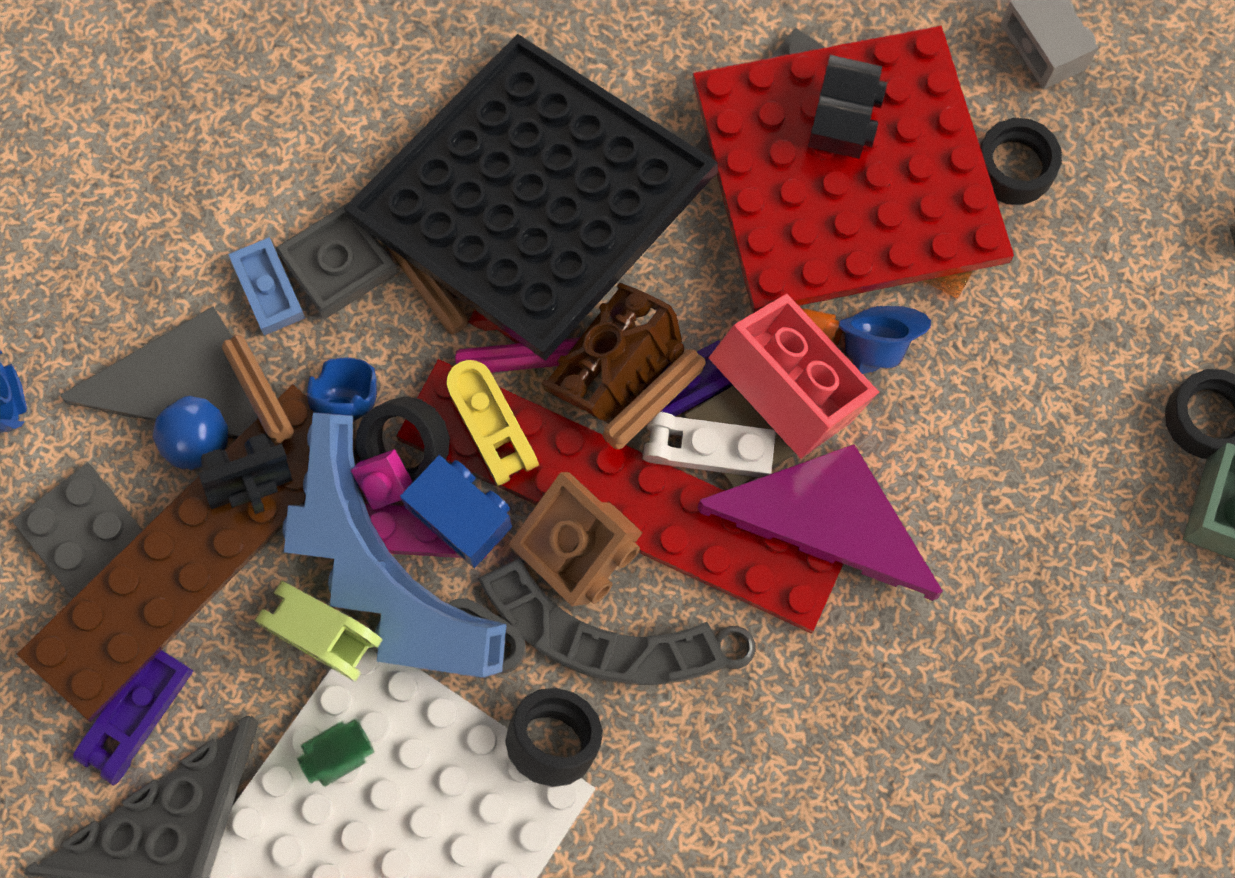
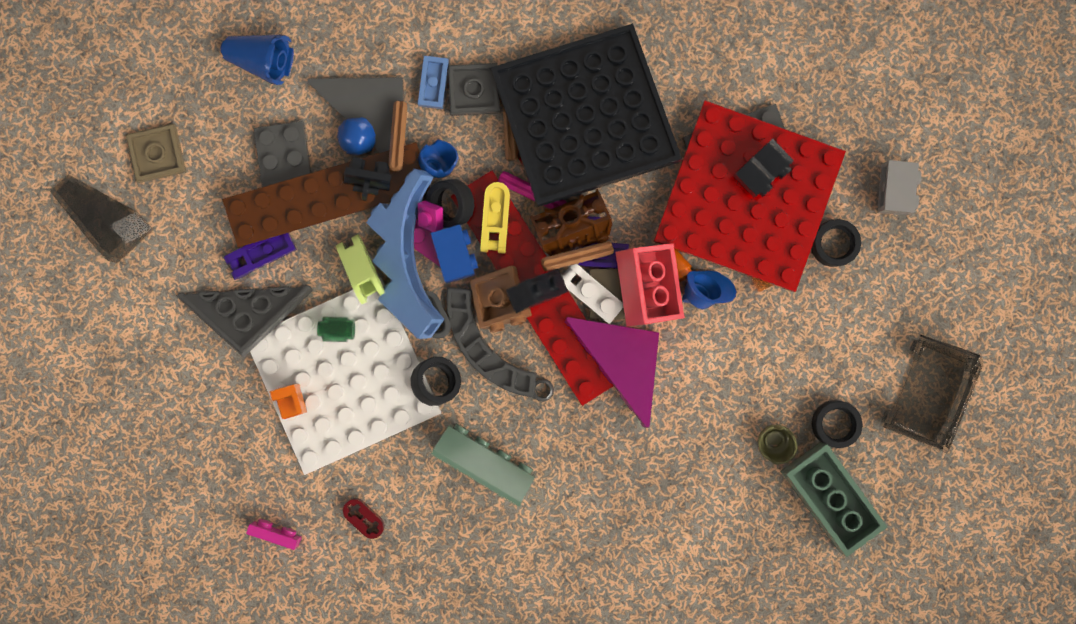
camera: 30 degrees right, 15 degrees up
(626, 482) = (536, 290): none -> black brick
(722, 823) = (483, 464): none -> sand green slope
(1154, 485) = (779, 436): none -> olive hair

